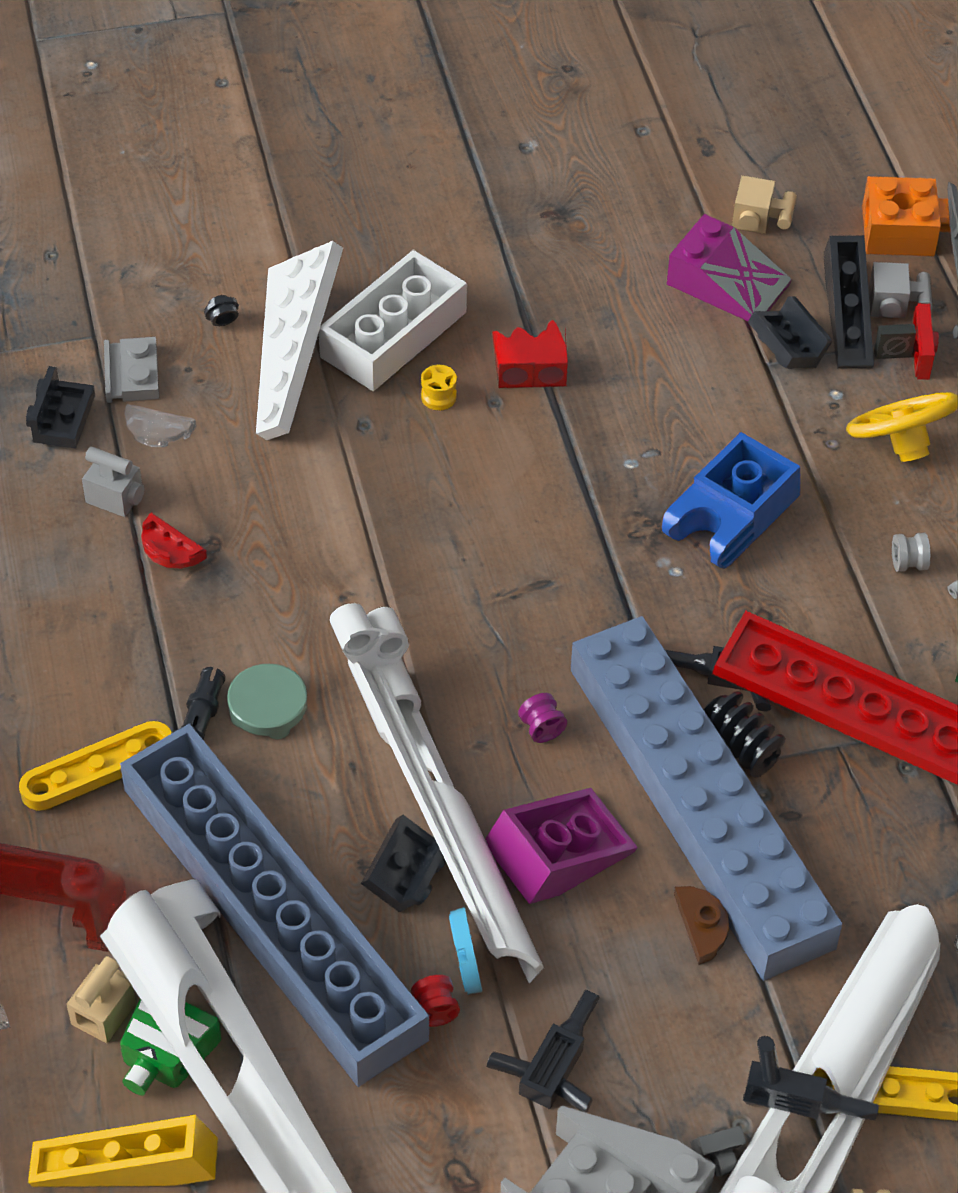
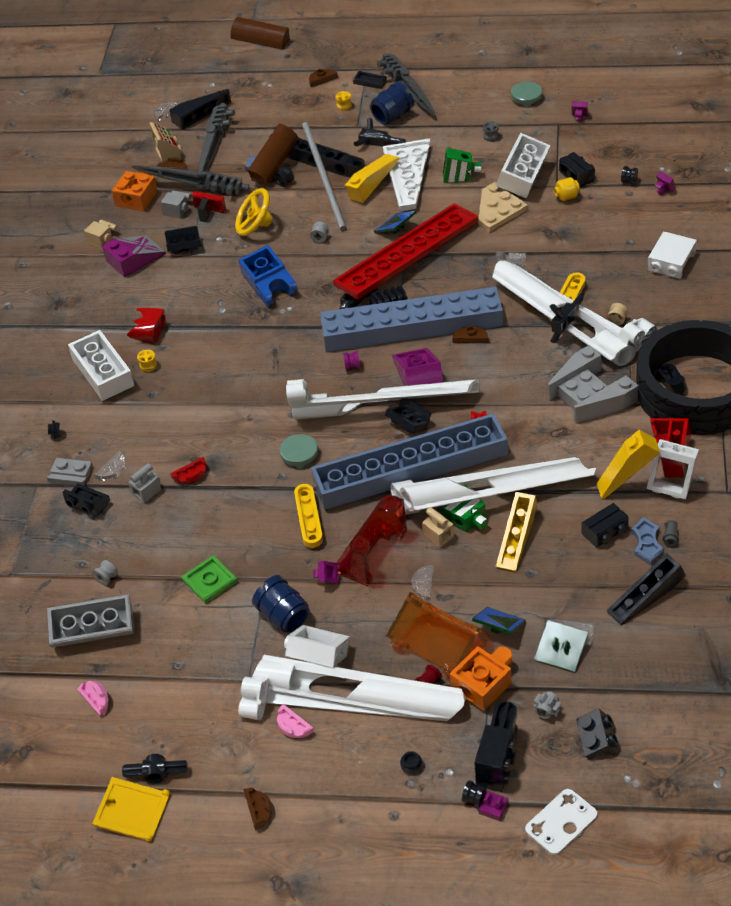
camera: 65 degrees left, 5 degrees down
(203, 702) = (291, 473): black pin -> none
(293, 317) = (78, 397): white wing -> none
(465, 951) = (462, 400): medium azure tile -> none
(548, 1071) = (519, 391): black piece -> none
(719, 1148) = (574, 346): dark grey tile -> none
(849, 300) = (169, 217): black slope -> none

